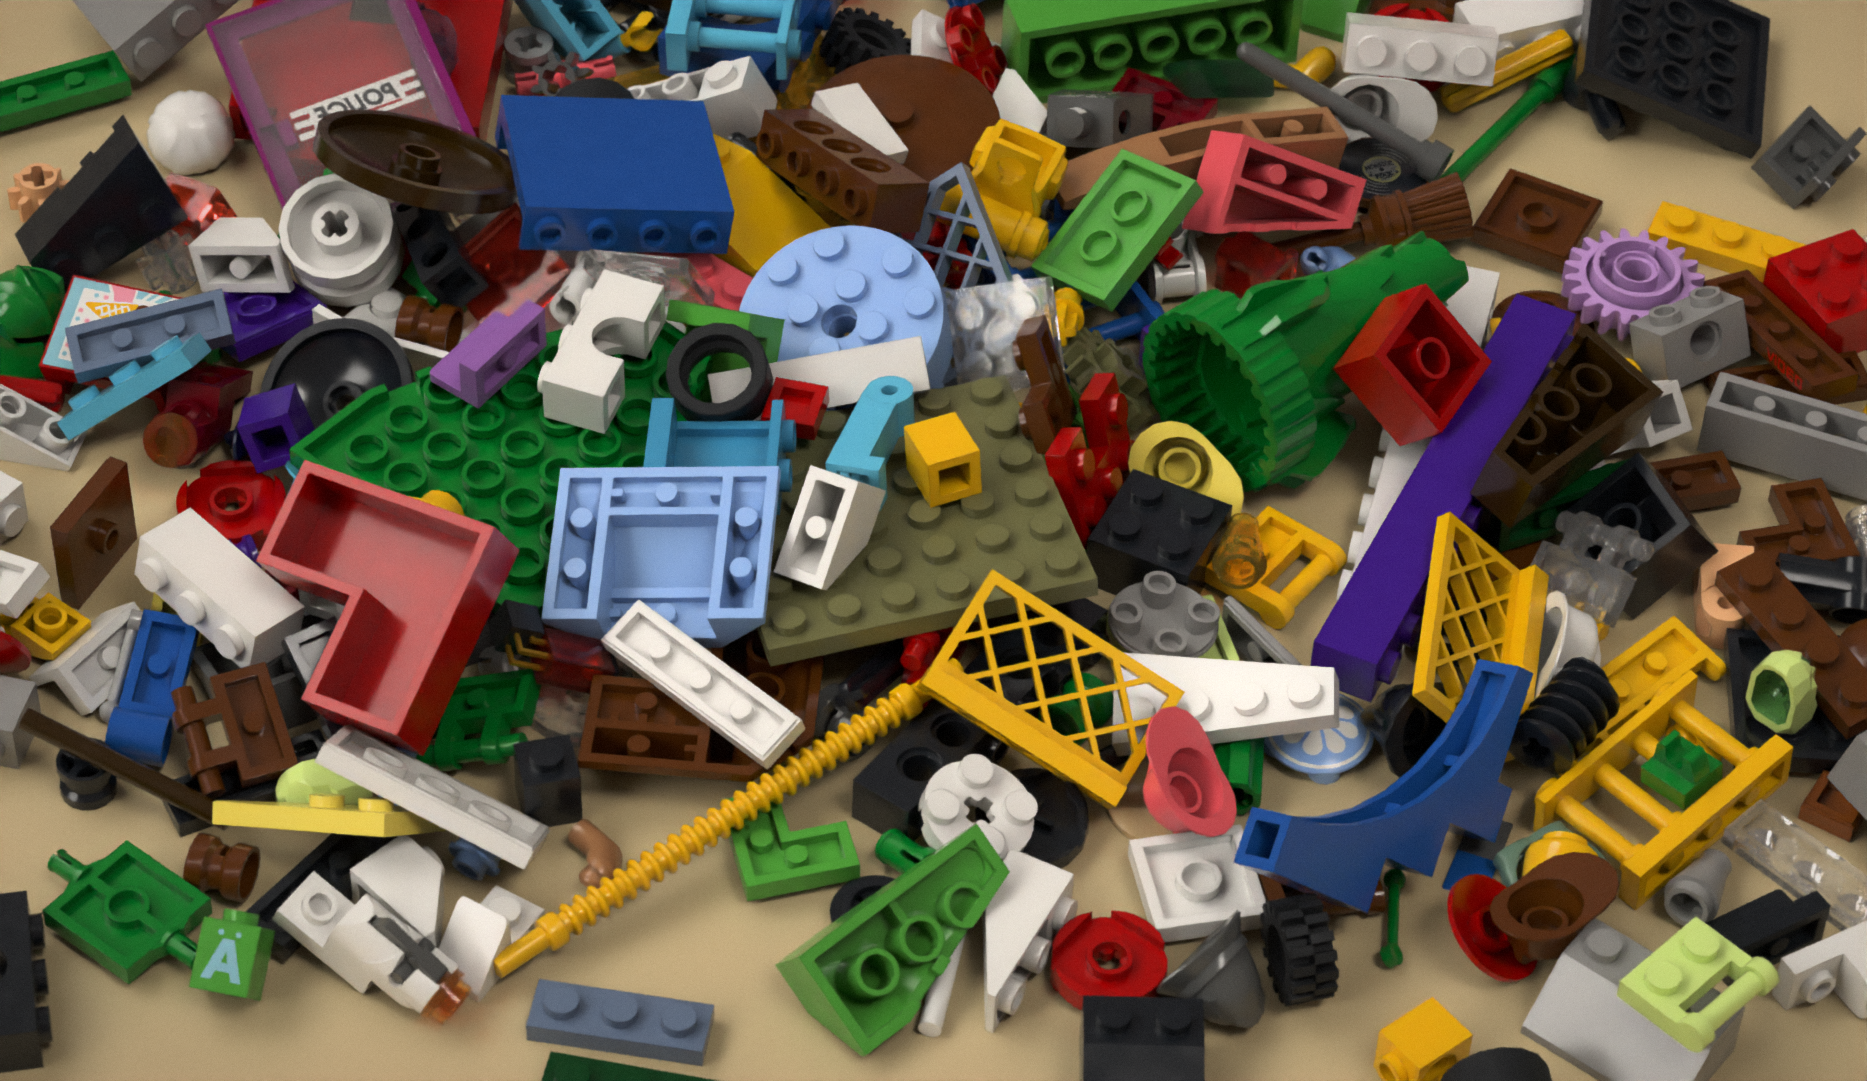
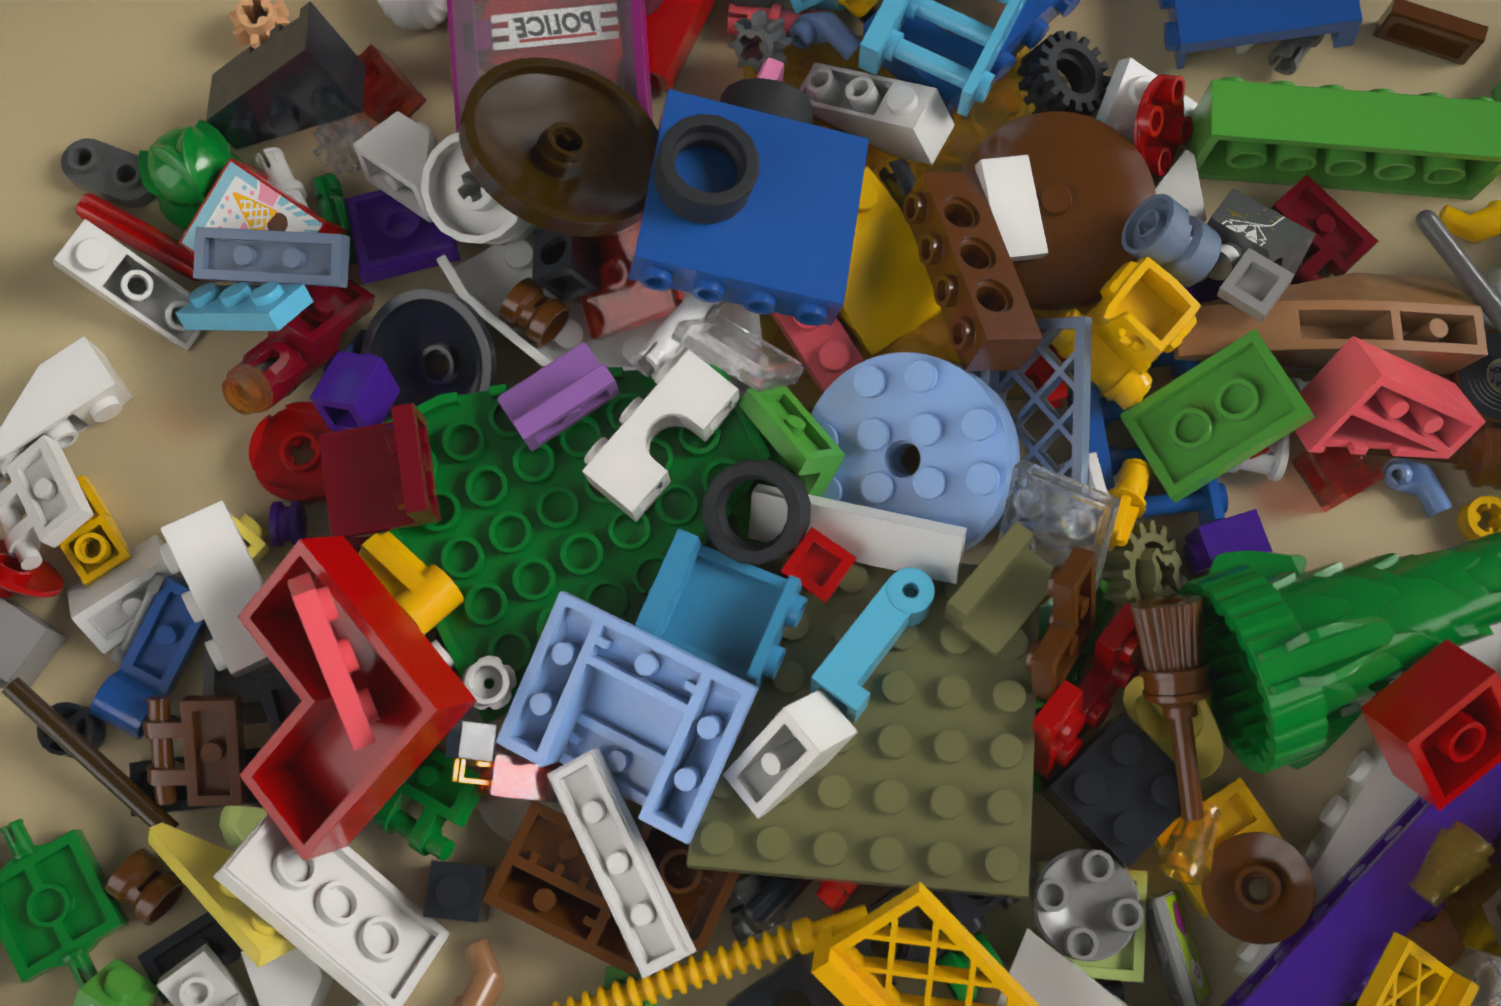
camera: 20 degrees right, 30 degrees up
(93, 532) = (155, 465): reddish brown plate -> none
(356, 439) = (380, 475): none -> dark red bracket
(372, 542) = (335, 659): none -> coral plate
(523, 579) = (504, 682): none -> white plate
(563, 152) = (722, 136): none -> black tyre
(623, 61) = (824, 28): none -> medium blue arm
(942, 459) = (930, 696): yellow brick -> none
(972, 380) = (1000, 592): none -> olive panel
(1012, 99) = (1171, 239): none -> sand blue wheel
(1109, 123) = (1255, 285): none -> light grey plate
(1162, 404) = (1176, 679): none -> reddish brown piece
(1219, 79) = (1385, 213): clear green slope -> none
(1308, 550) = (1228, 894): none -> reddish brown dish
(1464, 455) = (1451, 863): none -> clear yellow cone

